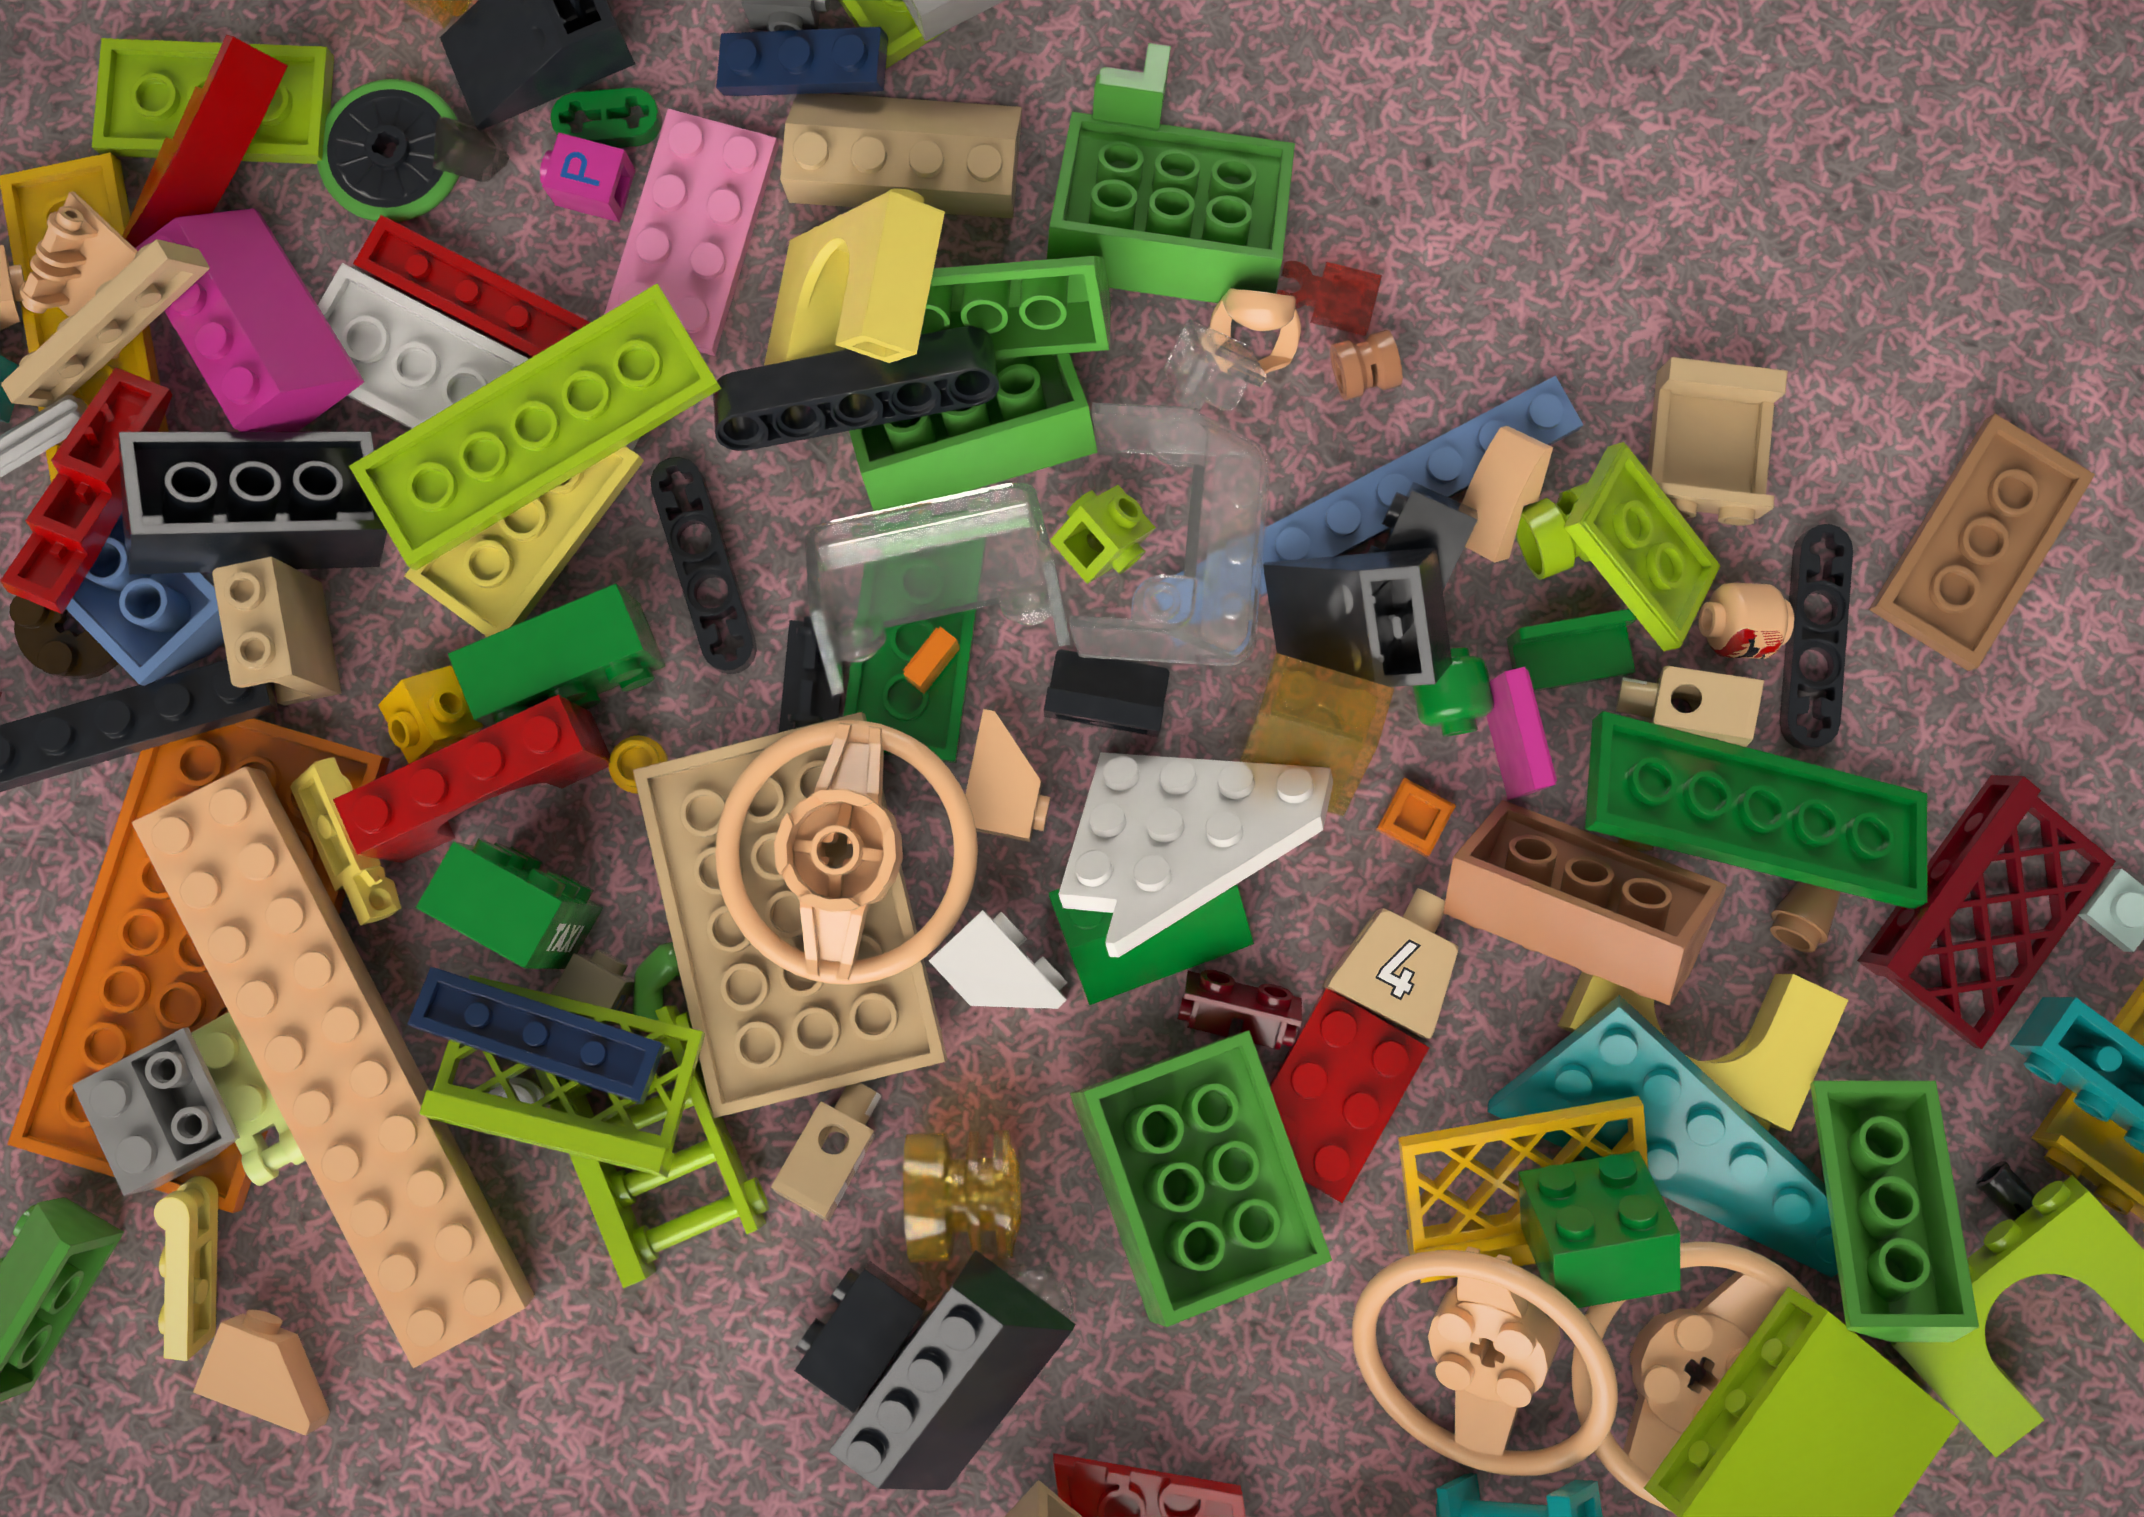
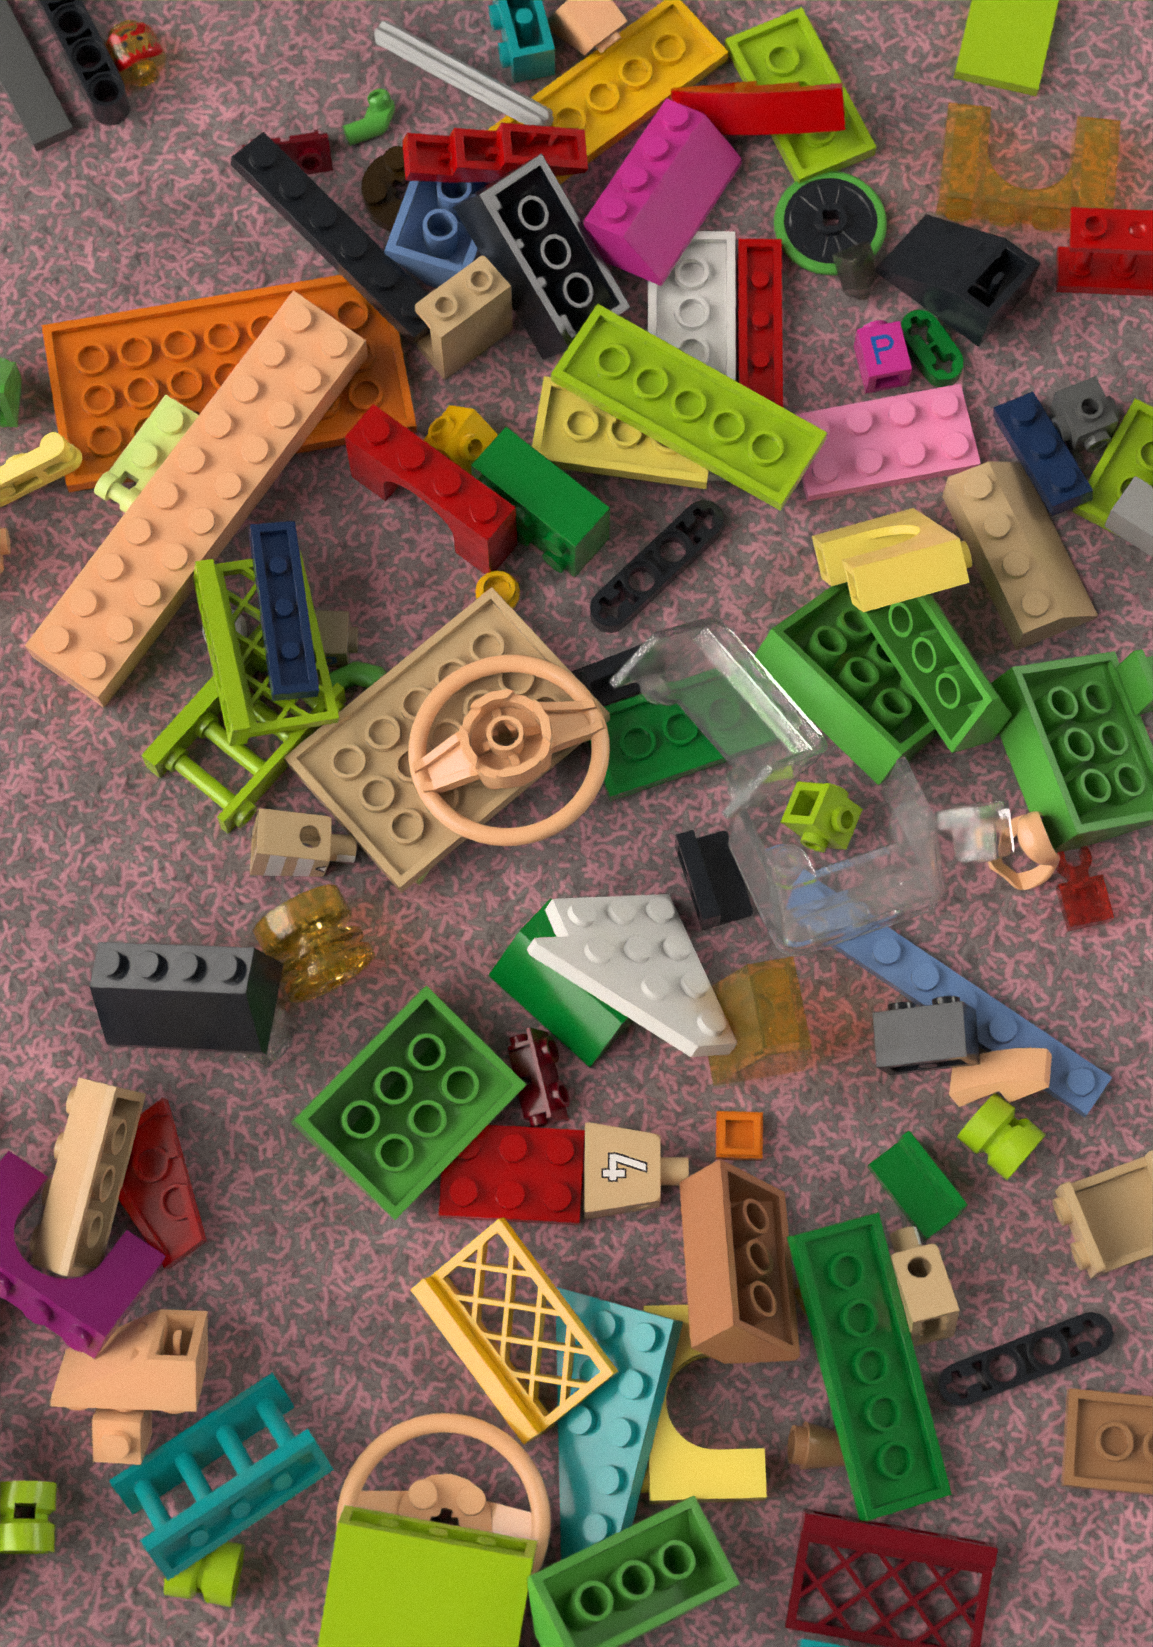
camera: 60 degrees right, 10 degrees down
(74, 259) = (636, 82): light nougat hinge -> none
(105, 323) = (609, 109): tan plate -> none
(157, 1113) = (111, 404): light grey slope -> none
(361, 877) = (330, 442): light yellow hinge -> none
(510, 904) = (362, 552): green brick -> none
(853, 390) = (821, 592): black beam -> none
(860, 1336) = (180, 921): black brick -> none
(931, 659) = (670, 742): orange tile -> none
(992, 969) = (479, 888): white slope -> none
(1004, 785) = (610, 836): light nougat slope -> none
(1363, 615) = (858, 1016): black slope -> none
(1366, 364) = (1044, 939): nougat wheel -> none
(1457, 697) = (841, 1112): green head -> none
(1494, 1353) = (393, 1360): light nougat piece -> none
(1519, 735) = (832, 1167): dark pink tile -> none
(1600, 1229) = (508, 1377): green brick -> none
(1642, 546) = (1014, 1189): lime tile -> none
(1746, 620) = (1007, 1299): light nougat head -> none

